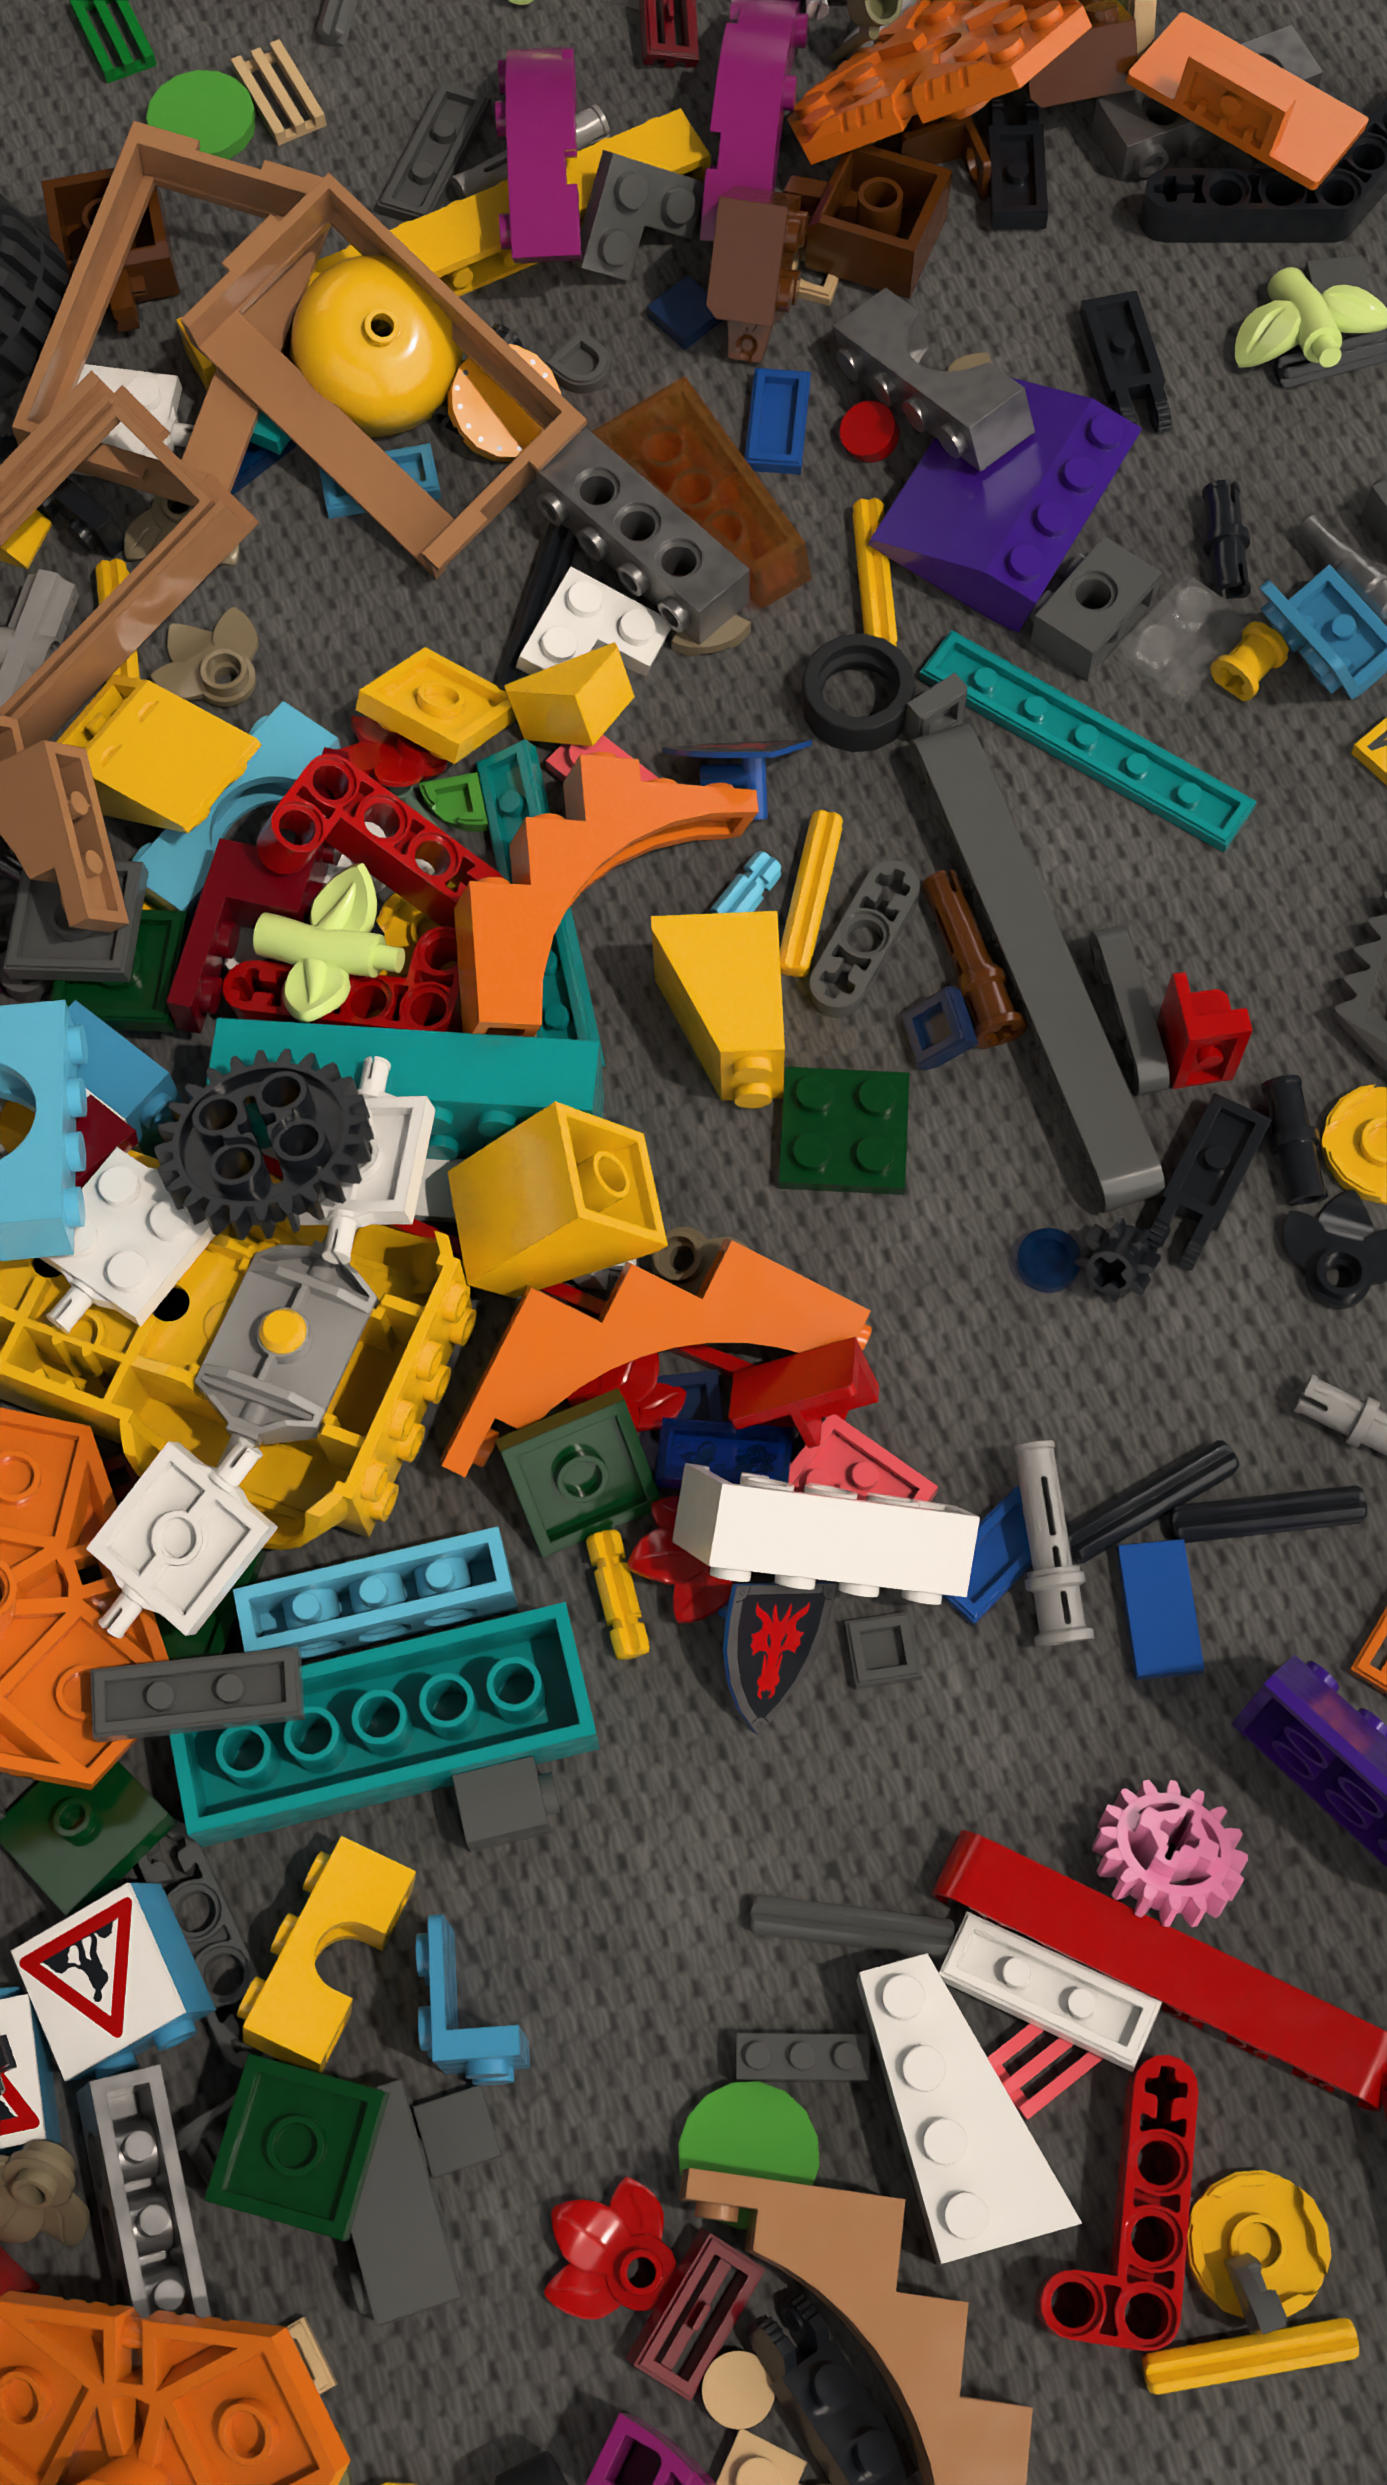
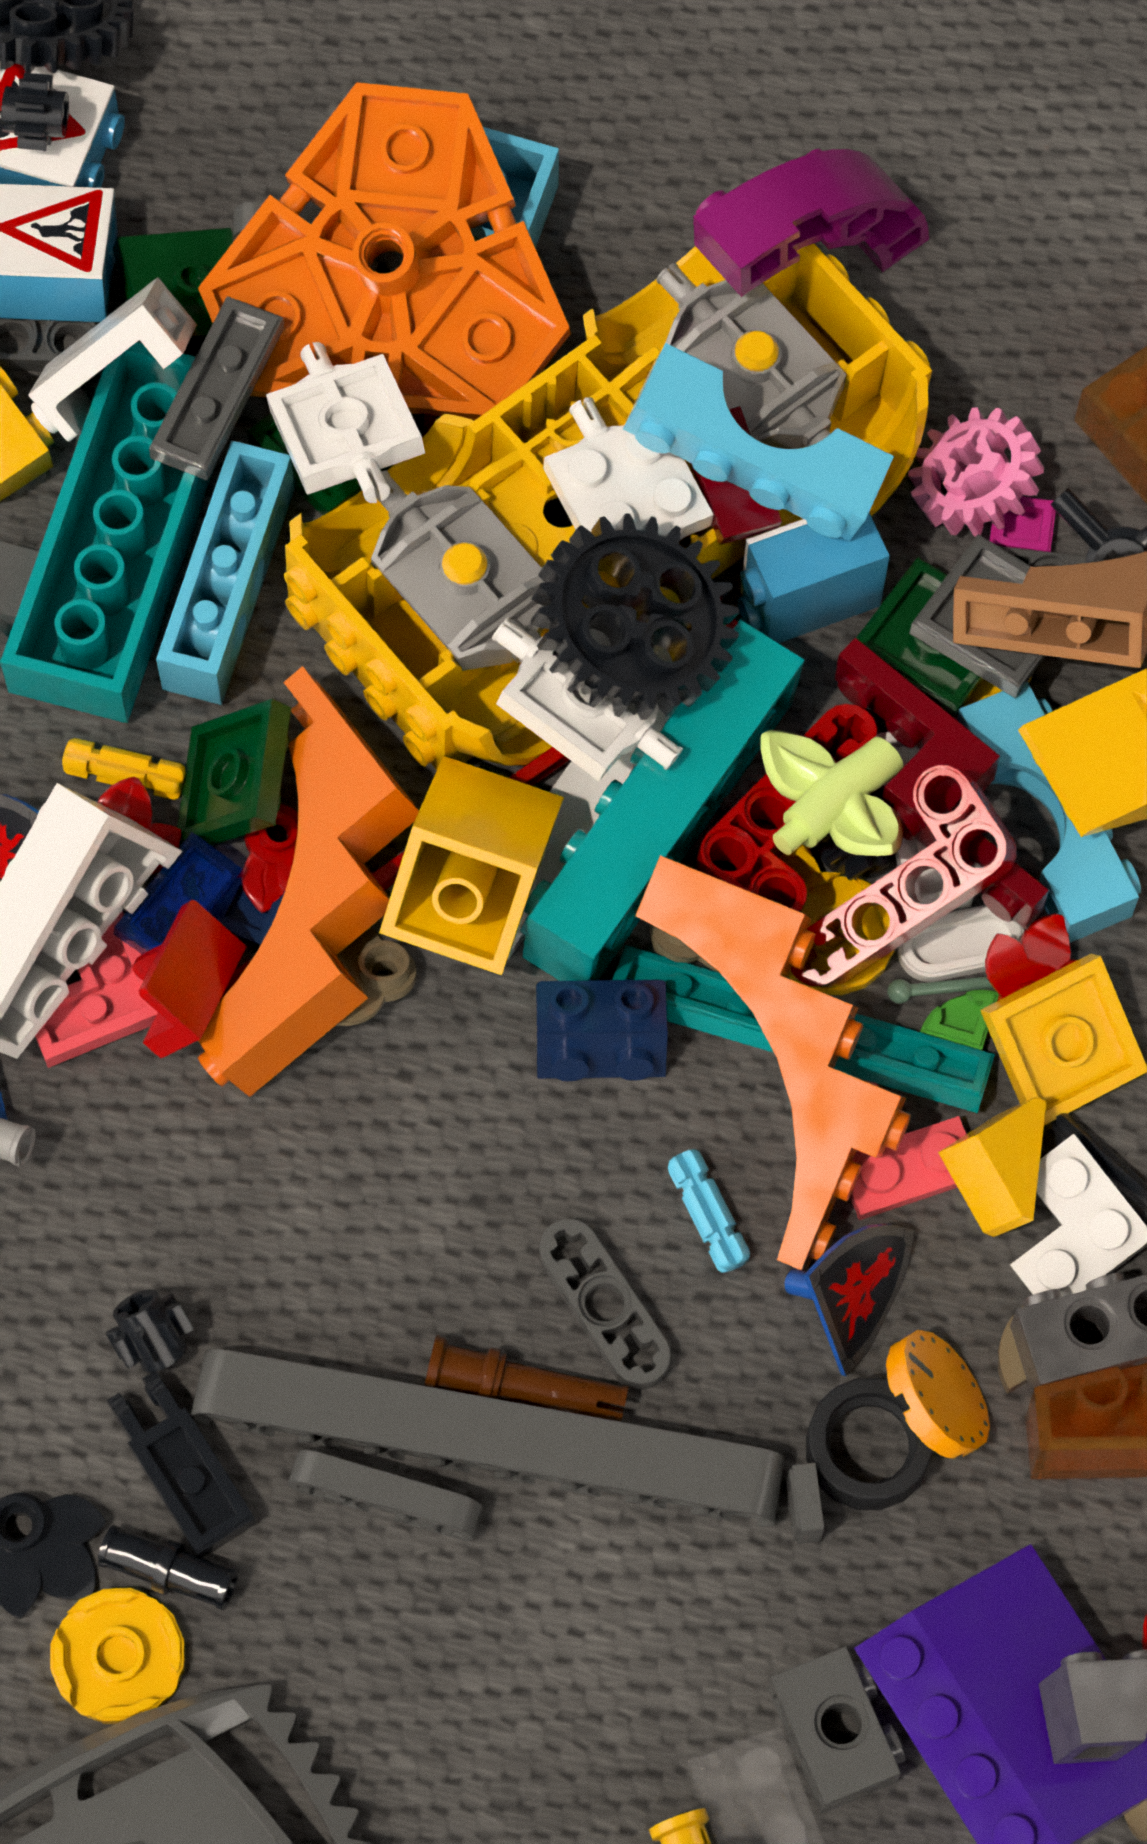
camera: 115 degrees right, 0 degrees up
(208, 1827) = (148, 316): none -> white panel
(632, 1047) = (601, 1029): none -> dark blue bracket
(727, 997) = (589, 1121): yellow slope -> none
(794, 652) = (941, 1394): none -> light orange tile
(810, 893) = (681, 1282): yellow axle -> none
(844, 1130) = (424, 1179): dark green plate -> none
(873, 572) = (995, 1540): yellow axle -> none
(939, 1028) = (469, 1312): dark blue tile -> none
(1048, 1260) = (196, 1282): clear blue tile -> none
(1092, 742) = (697, 1642): teal tile -> none
(1201, 1034) = (311, 1525): red panel -> none

